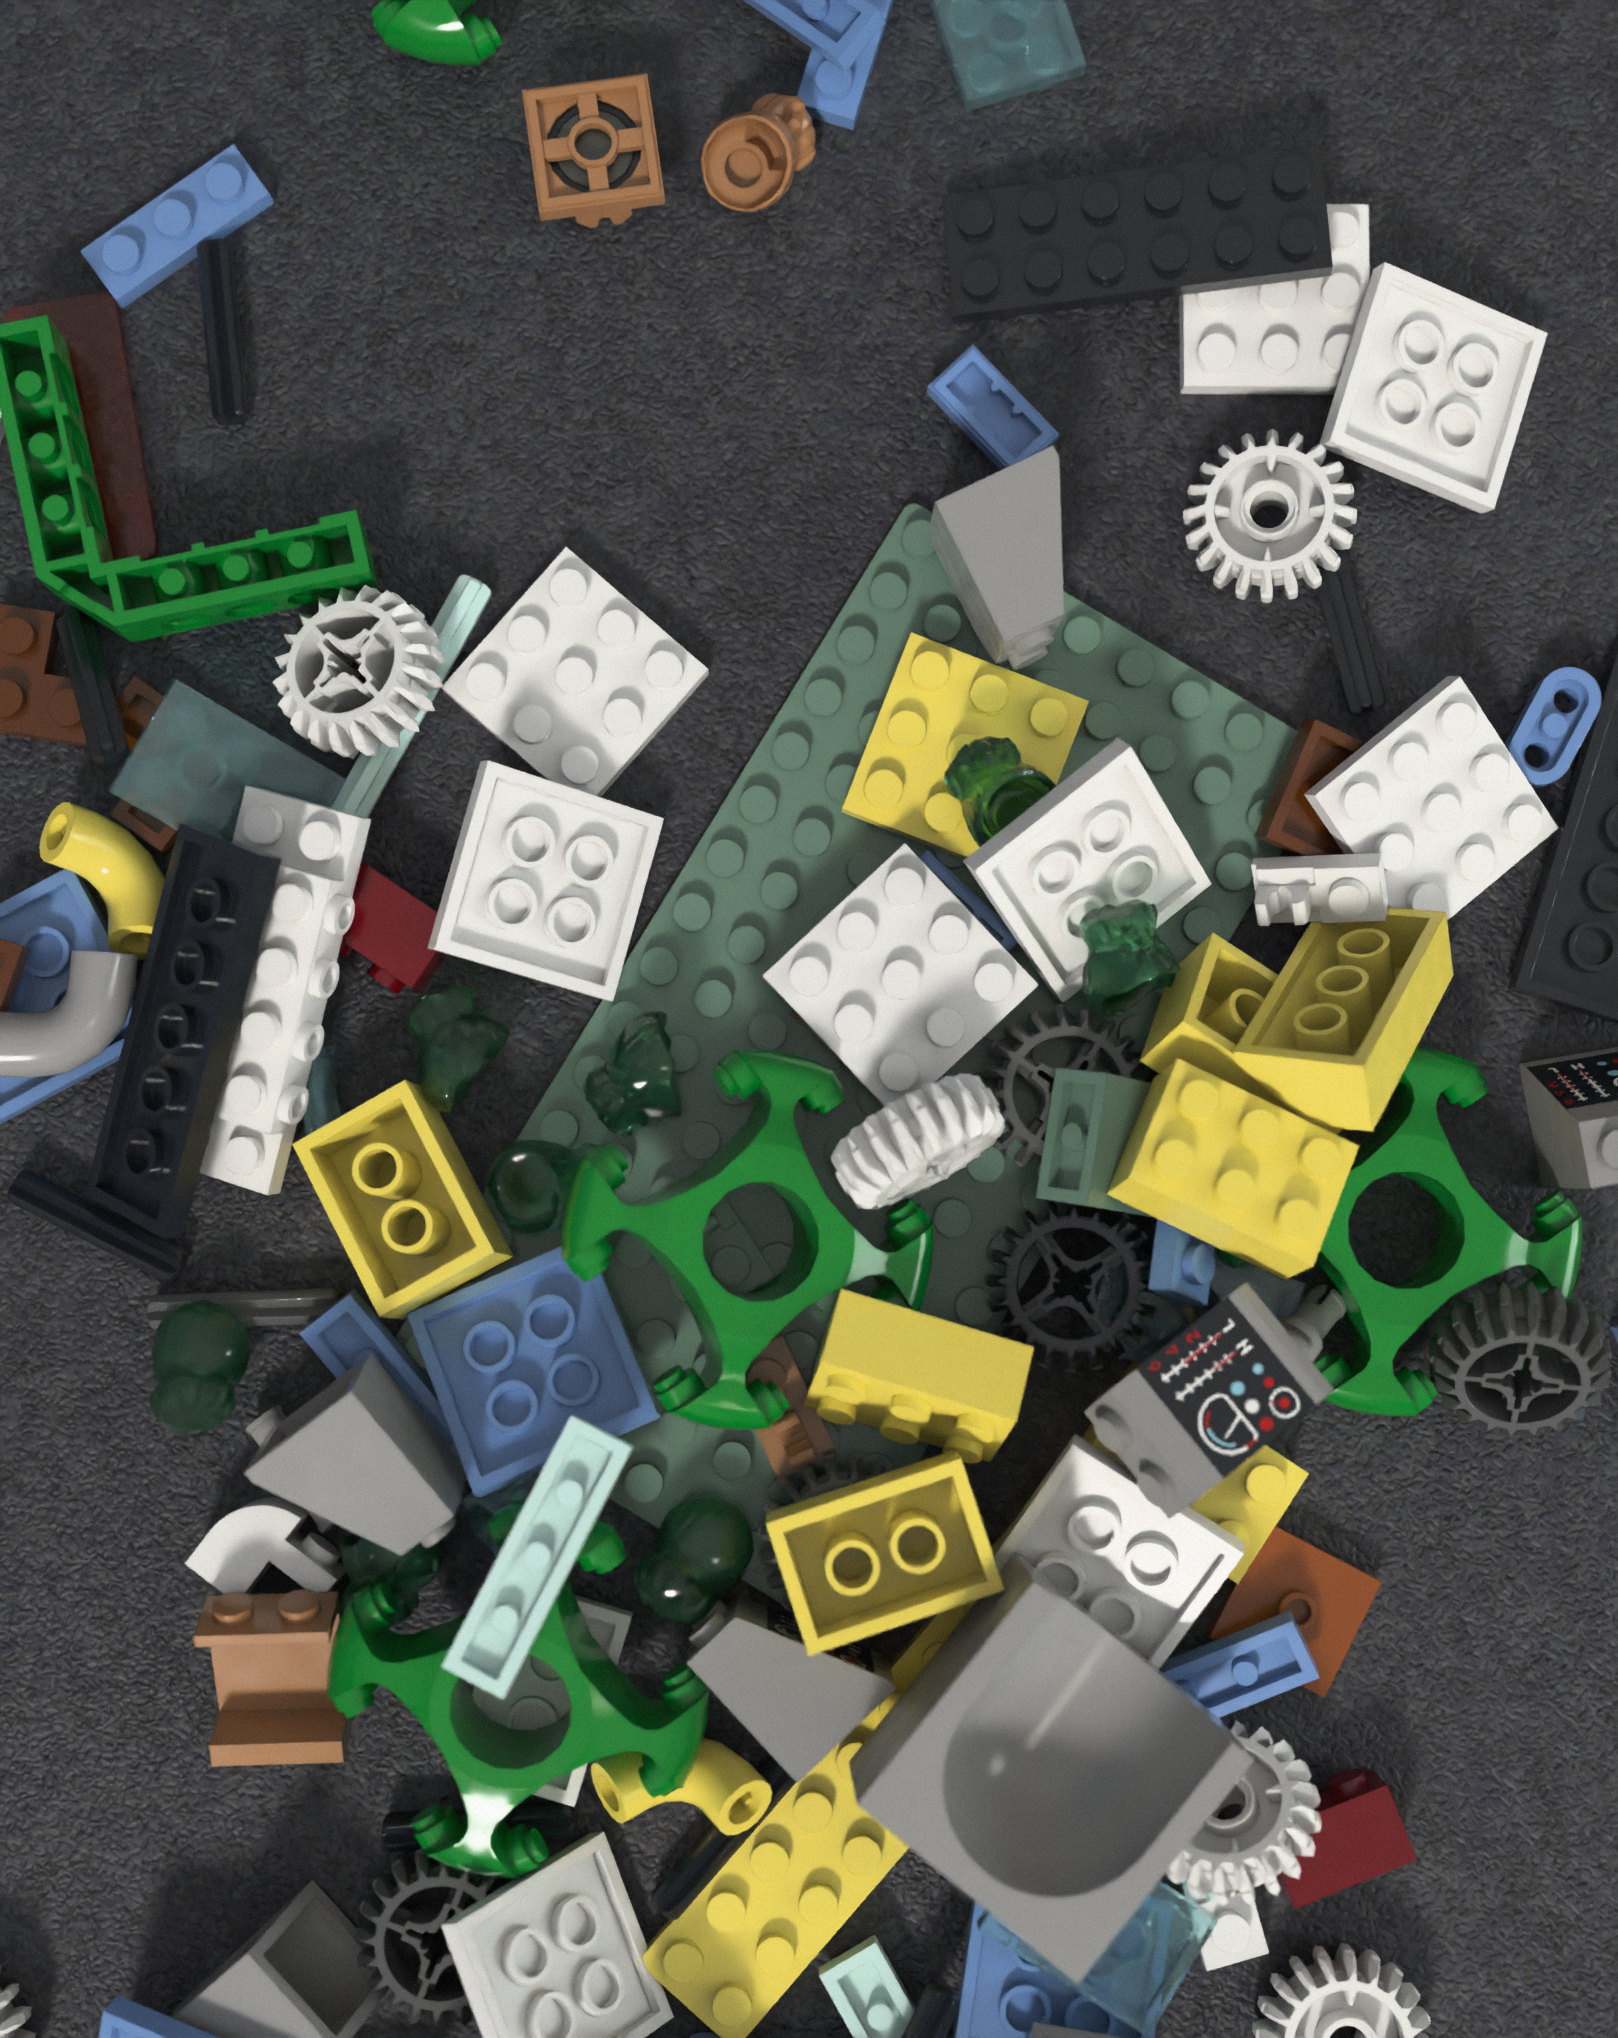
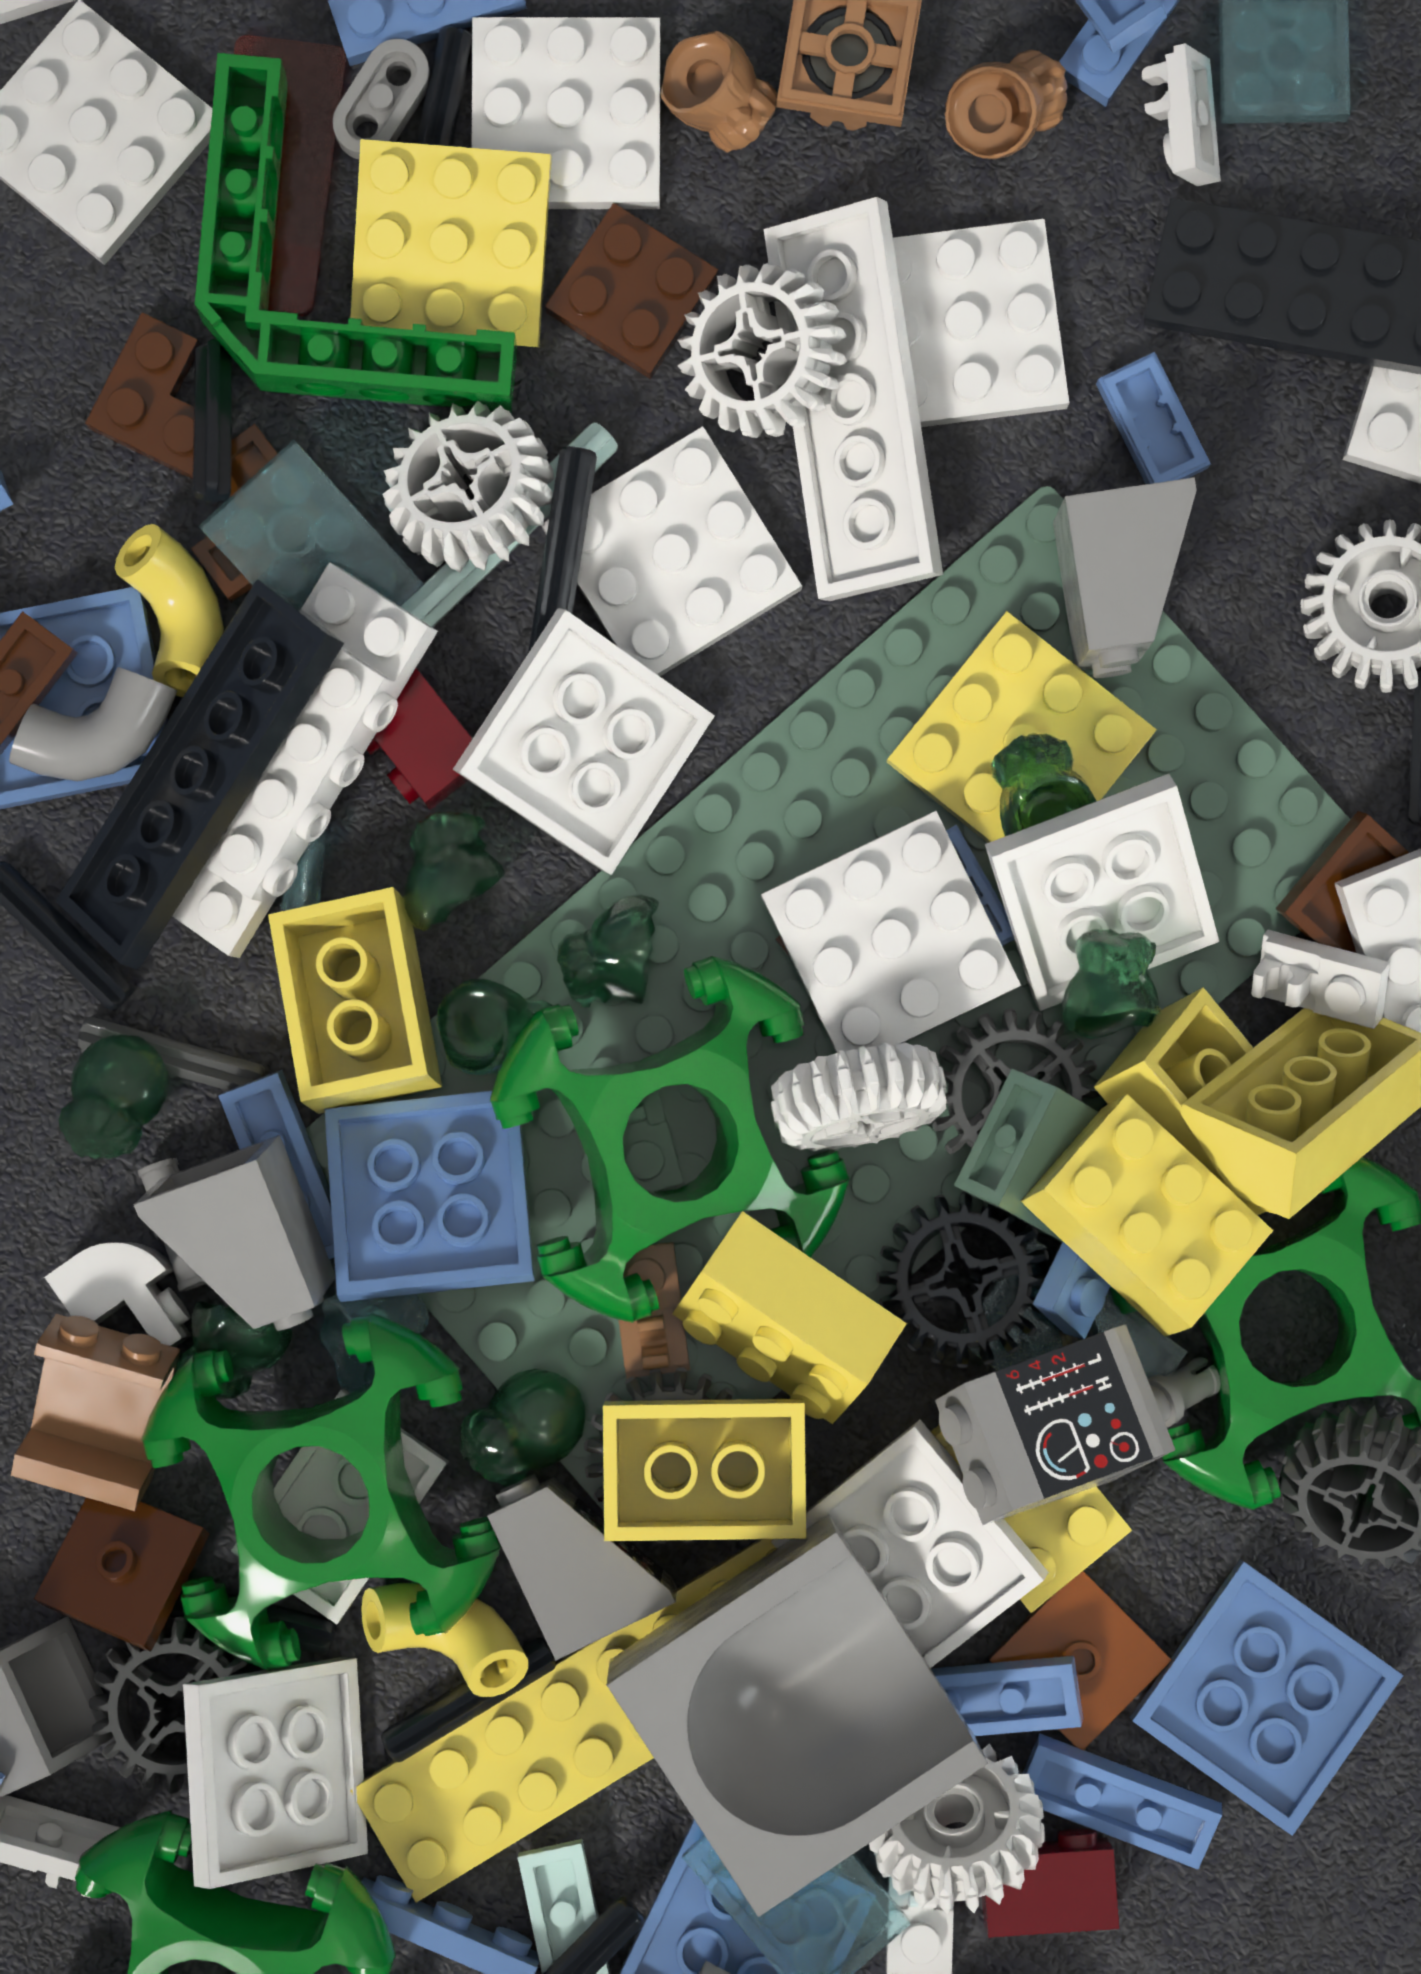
camera: 30 degrees right, 0 degrees up
(160, 333) = (377, 100): none -> light grey plate
(268, 439) = (451, 238): none -> light yellow plate
(342, 290) = (574, 93): none -> white plate
(350, 1822) = (122, 1569): none -> reddish brown plate
(458, 439) = (631, 290): none -> reddish brown plate
(465, 689) = (564, 536): none -> black axle
(479, 224) = (716, 90): none -> medium nougat hair
(537, 1557) = (382, 1367): light aqua plate -> none
(572, 421) = (746, 305): none -> white gear
(701, 477) = (866, 450): none -> white plate
(783, 376) = (982, 322): none -> white plate
(932, 104) = (1190, 112): none -> white plate
(1378, 1733) = (1122, 1801): none -> medium blue plate
(1482, 1589) = (1266, 1697): none -> medium blue plate

